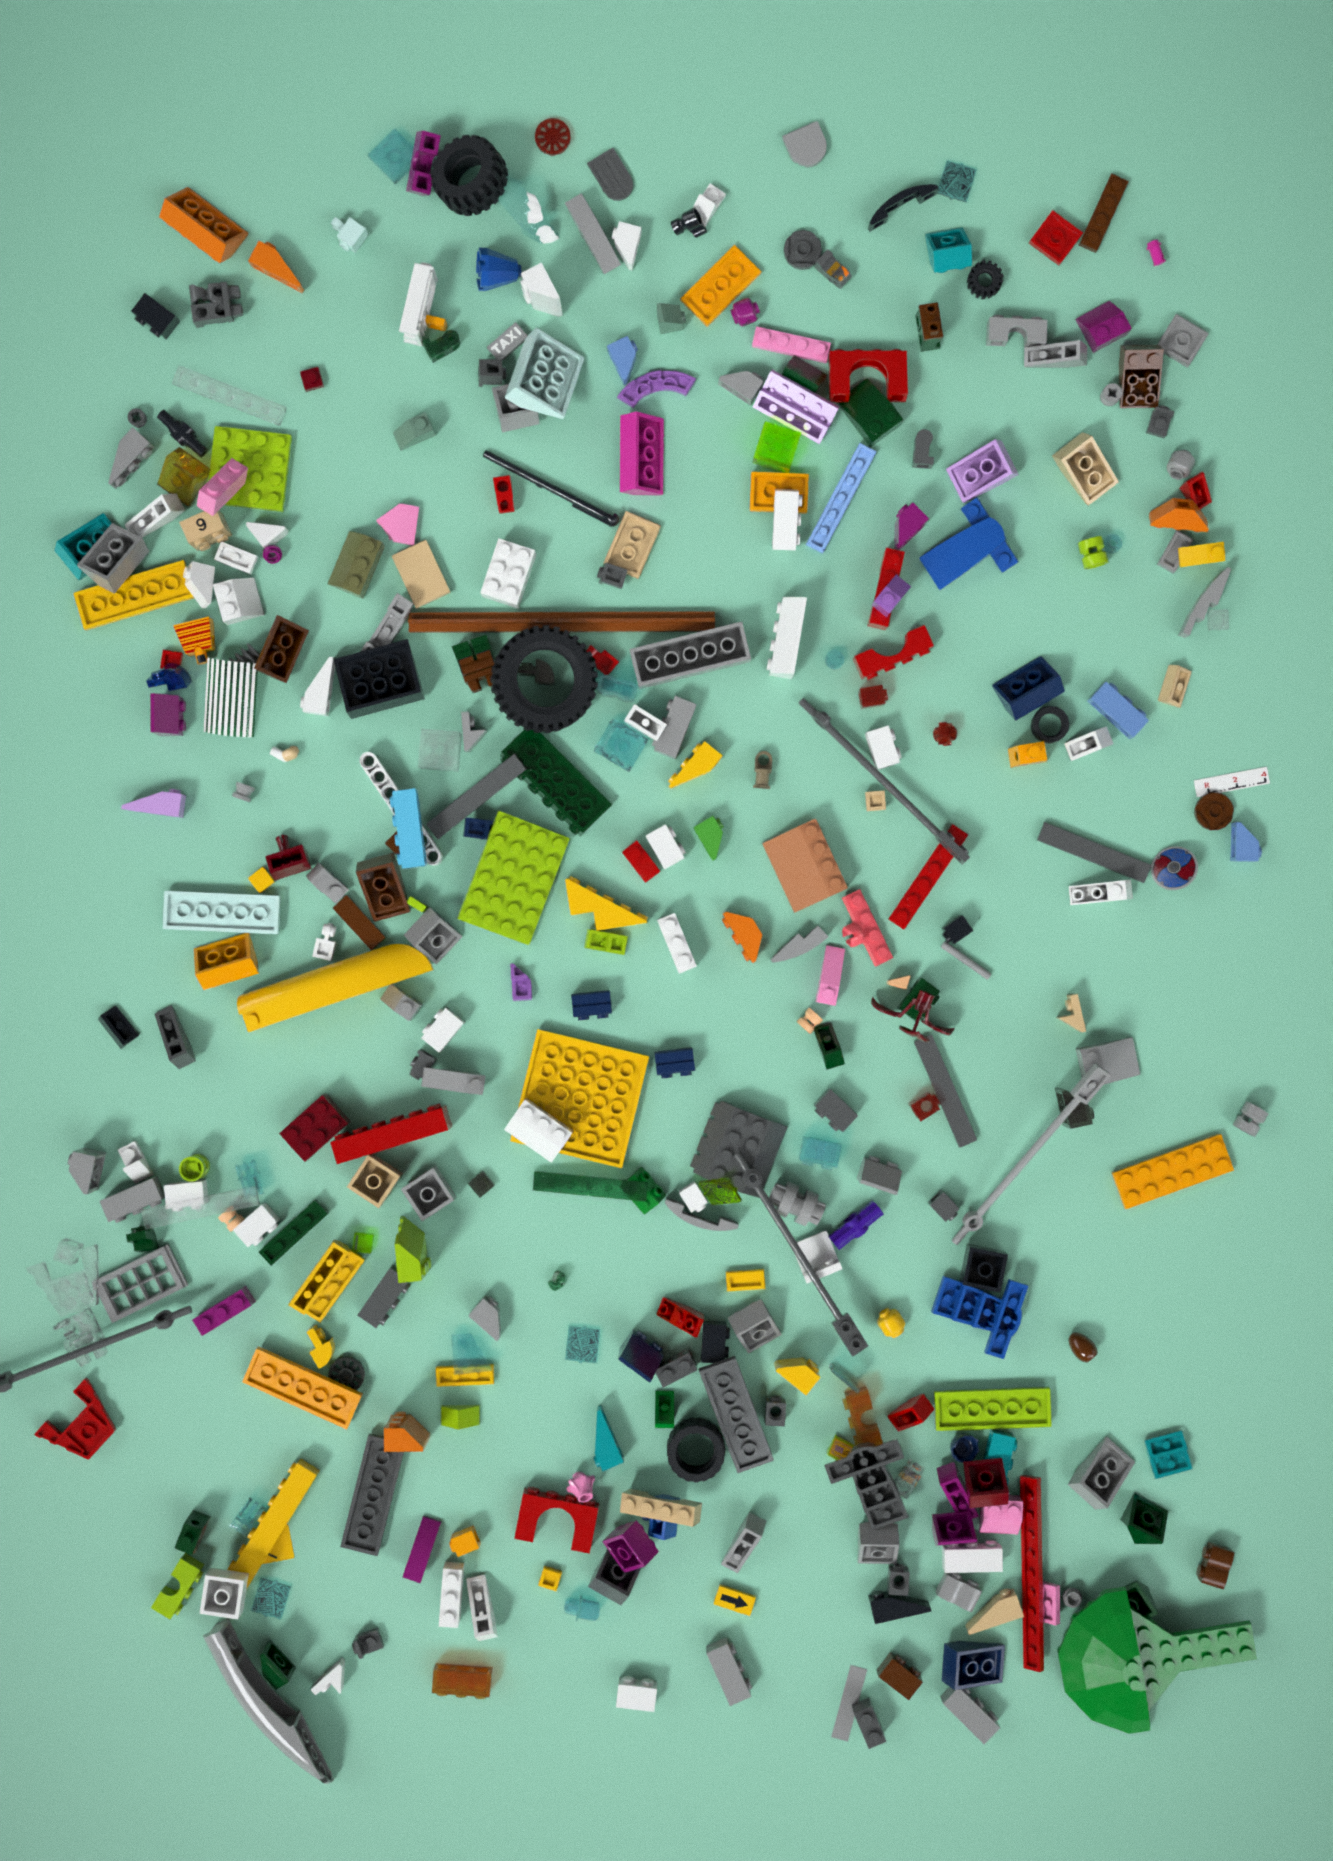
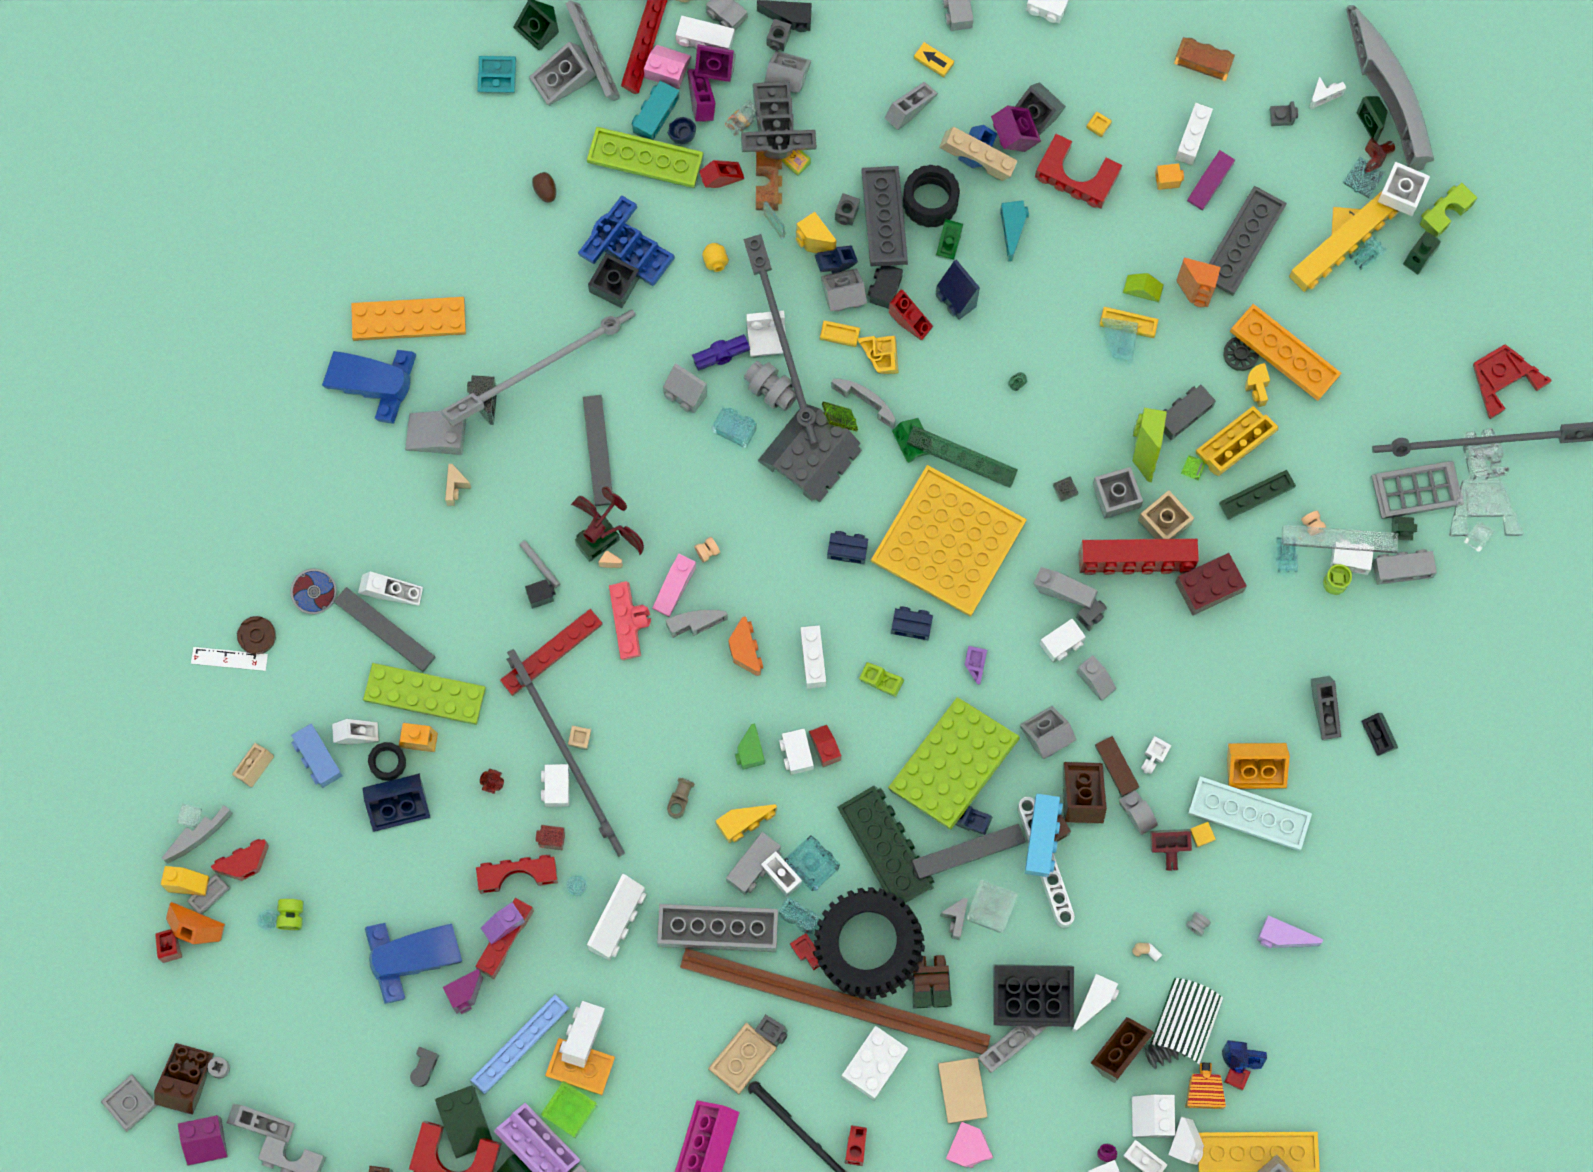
camera: 165 degrees left, 15 degrees down
(86, 1168) = (1442, 607): light grey slope -> none
(135, 1162) = (1394, 603): white slope -> none
(167, 714) = (1253, 1019): magenta slope -> none
(224, 1310) = (1342, 441): magenta brick -> none
(256, 1225) = (1290, 510): white brick -> none
(262, 1627) = (1377, 153): none -> clear red bracket
(331, 984) = (1160, 711): yellow slope -> none
(356, 564) = (1026, 1119): olive slope -> none
(417, 904) = (1054, 765): lime tile -> none
(481, 1608) = (1169, 115): white slope -> none
(487, 1316) = (1093, 367): light grey slope -> none
(538, 1130) = (995, 520): white slope -> none
(542, 672) = (868, 955): clear smoke brick -> none
(581, 1486) = (1046, 193): bright pink rock -> none
(582, 1344) = (1010, 319): clear light blue piece -> none
(582, 1608) = (1076, 89): clear light blue arm -> none
(606, 913) = (871, 705): yellow slope -> none
(676, 1368) = (927, 272): dark grey brick -> none
(693, 1197) = (866, 420): white brick -> none
(698, 1271) = (882, 353): none -> yellow slope
(770, 1355) = (837, 260): none -> dark blue brick
(805, 865) = (667, 695): nougat slope -> none
(829, 1046) = (696, 521): dark green slope -> none
(835, 1110) = (708, 460): dark grey brick -> none
(916, 1106) = (627, 434): clear red brick -> none
(944, 1206) = (633, 346): dark grey brick -> none
(982, 470) = (371, 1028): lavender slope -> none
(986, 1483) = (672, 93): dark red slope -> none
(1035, 801) = (424, 693): none -> lime plate
(1080, 1508) = (593, 50): none -> light grey tile
(1085, 468) = (268, 1001): tan slope -> none
(1153, 589) = (243, 862): none -> red slope
(1160, 421) = (179, 1026): dark grey bracket -> none
(1180, 464) = (174, 977): light grey head -> none
(1186, 1097) = (372, 379): none -> blue slope
(1243, 844) = (240, 593): medium blue slope -> none
(1253, 1112) = (314, 345): light grey wheel -> none

